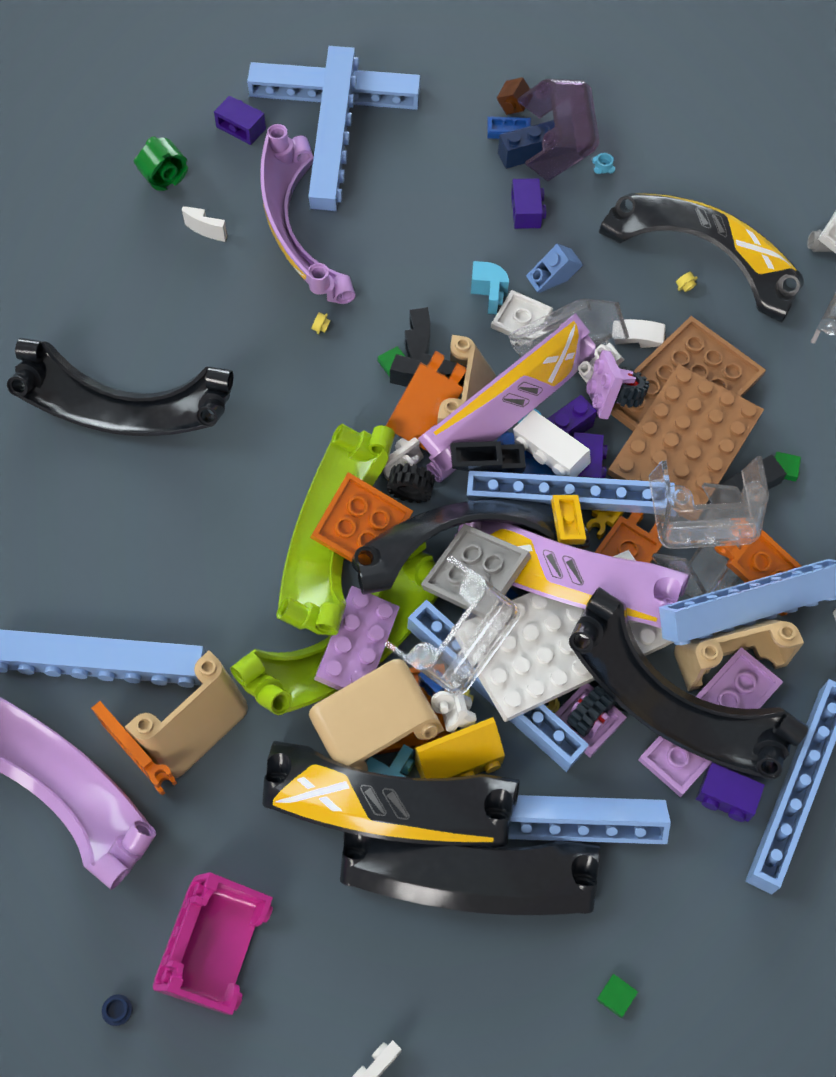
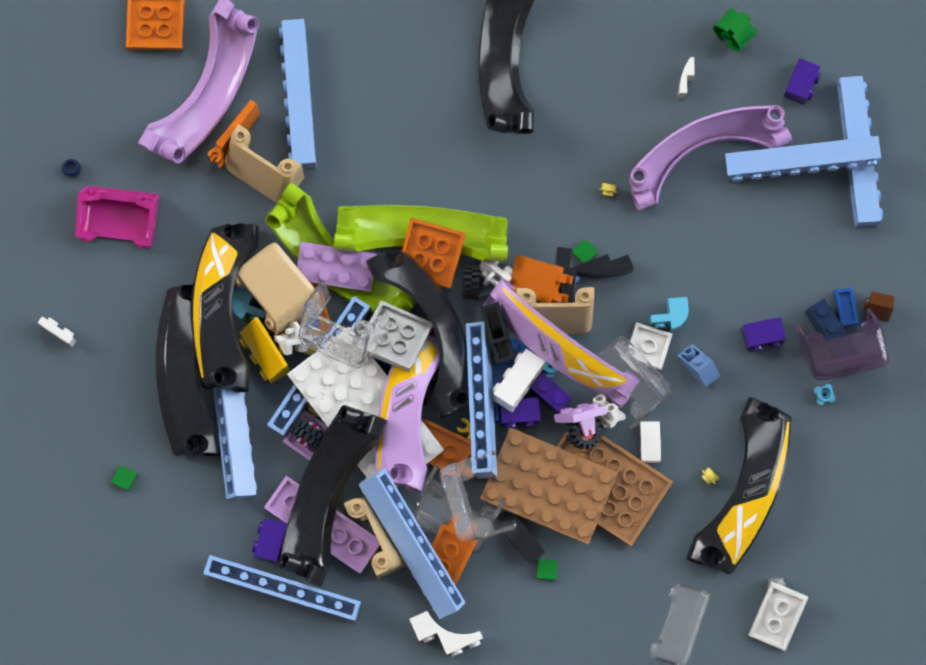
camera: 80 degrees right, 15 degrees up
(568, 519) = (449, 397): yellow plate -> none

